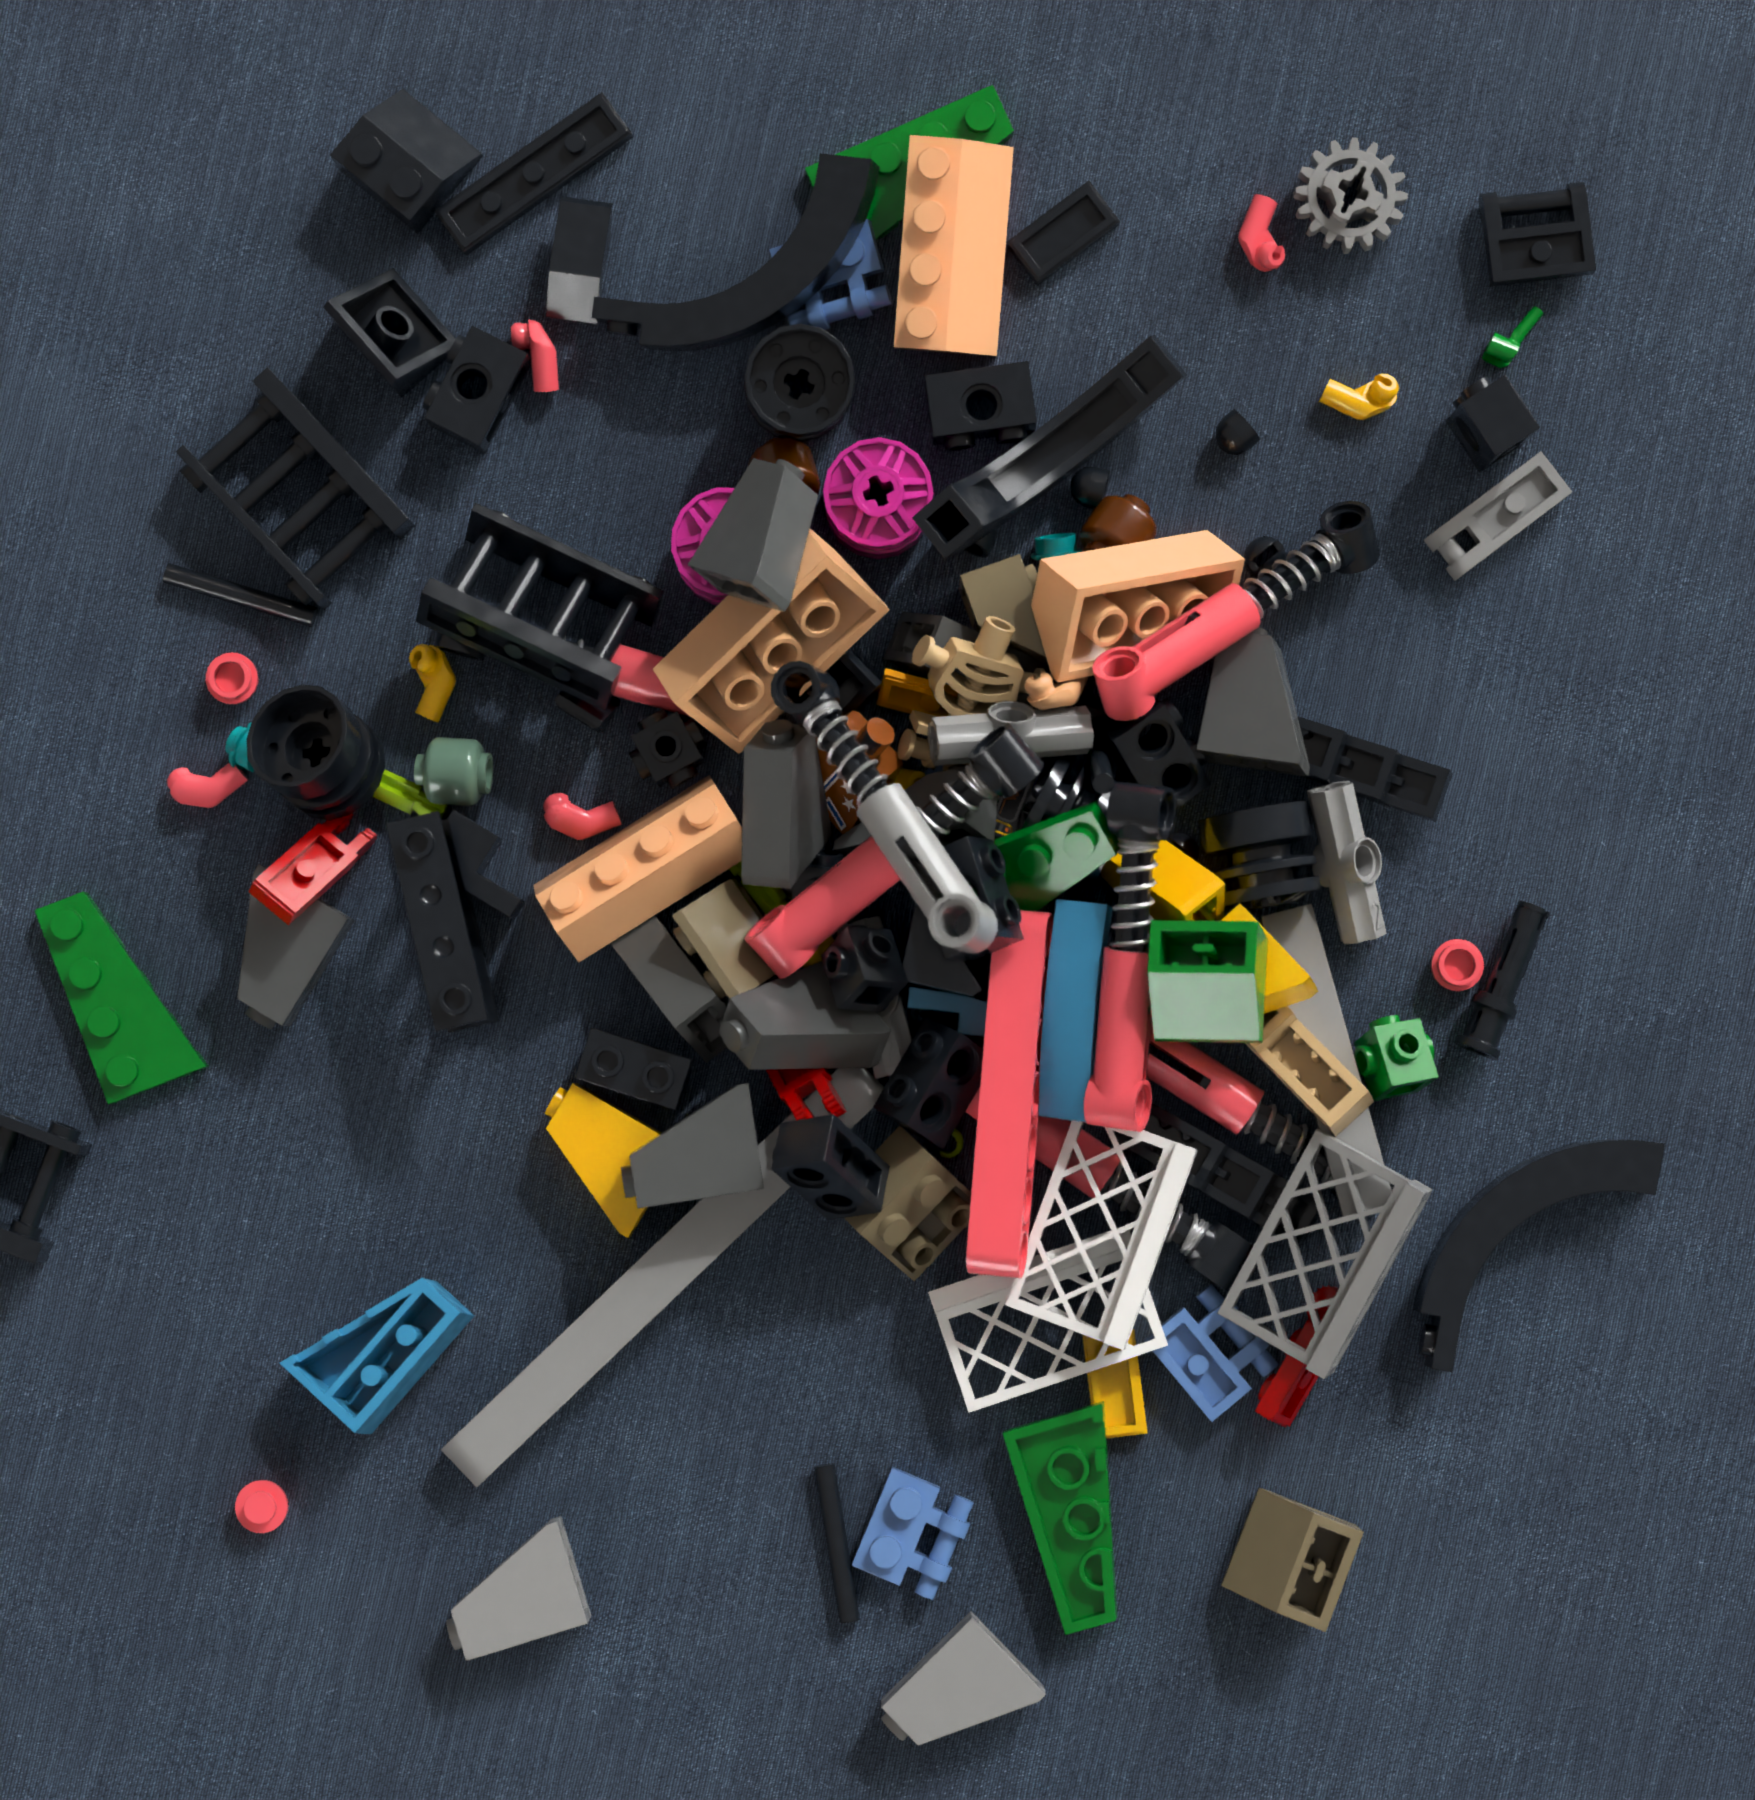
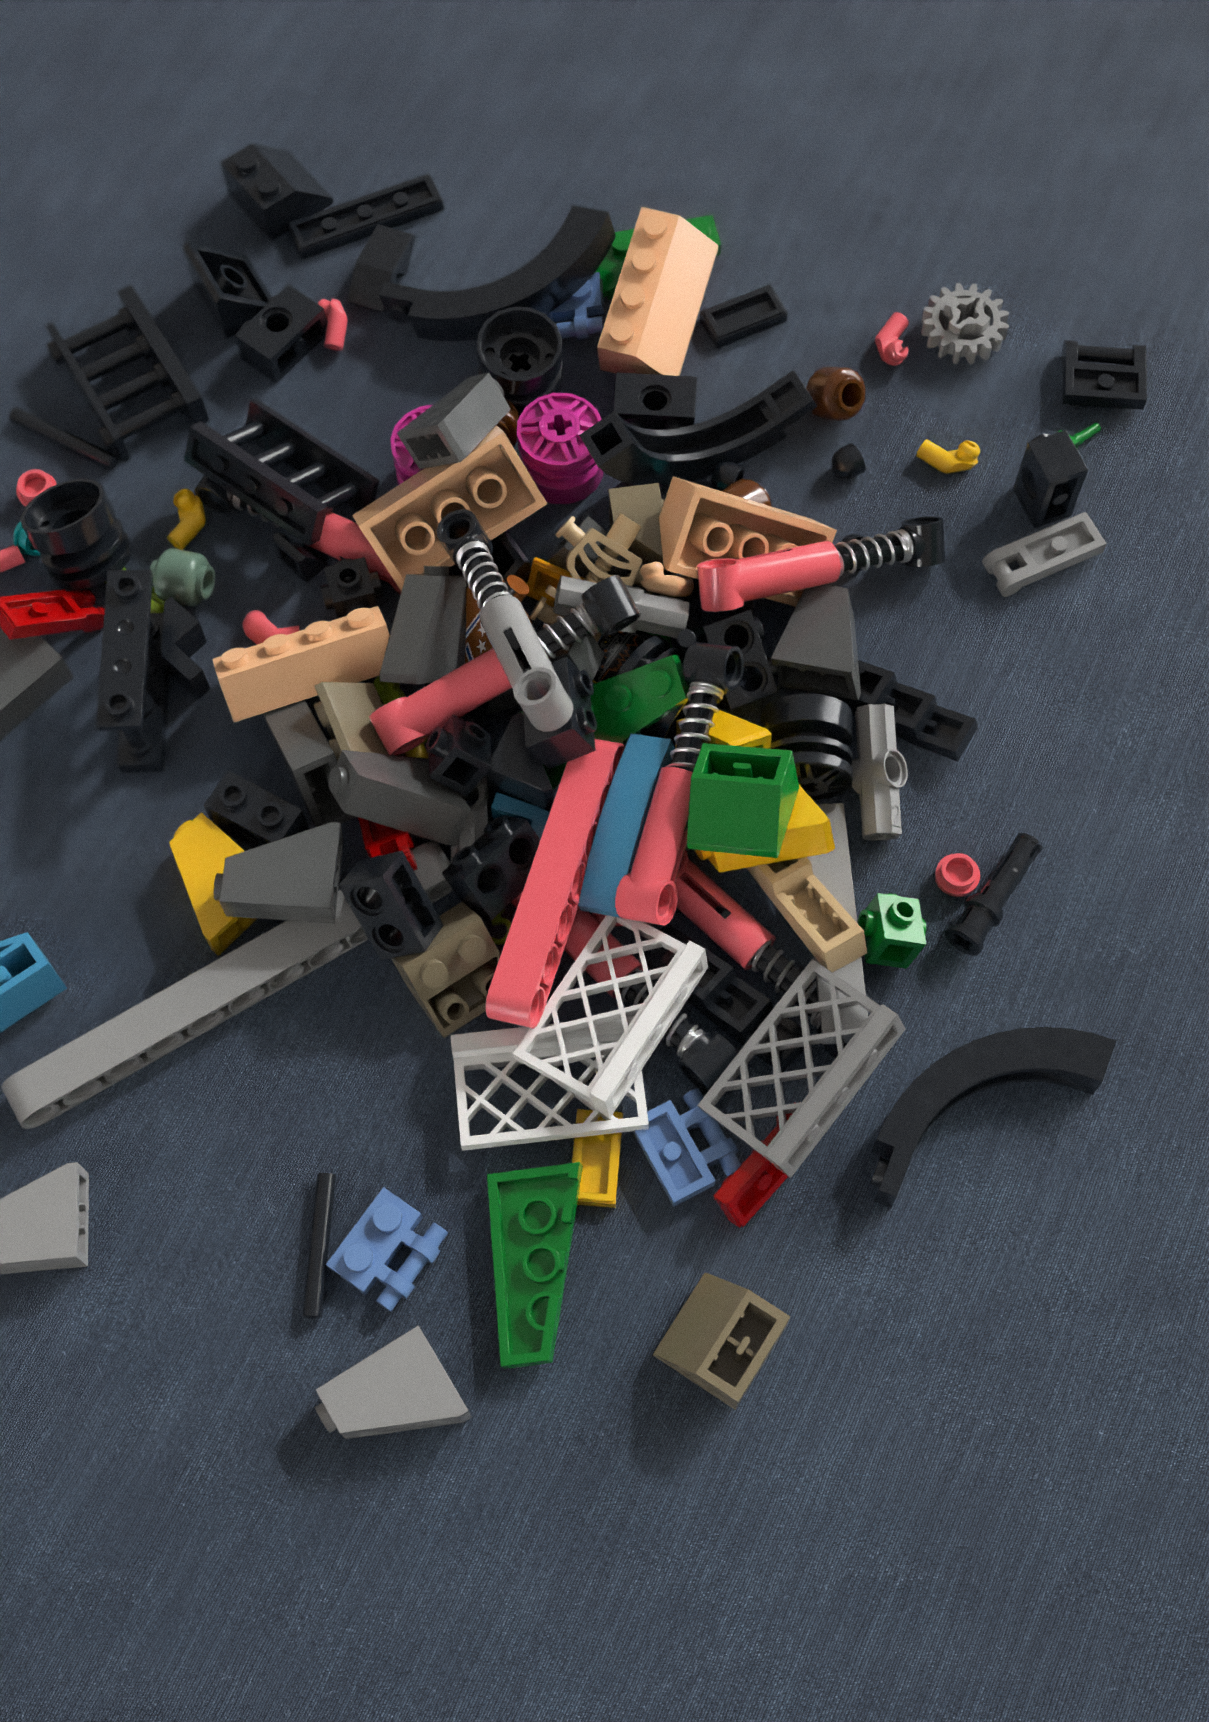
camera: 10 degrees right, 20 degrees down
(1205, 342) = (837, 393): none -> reddish brown head

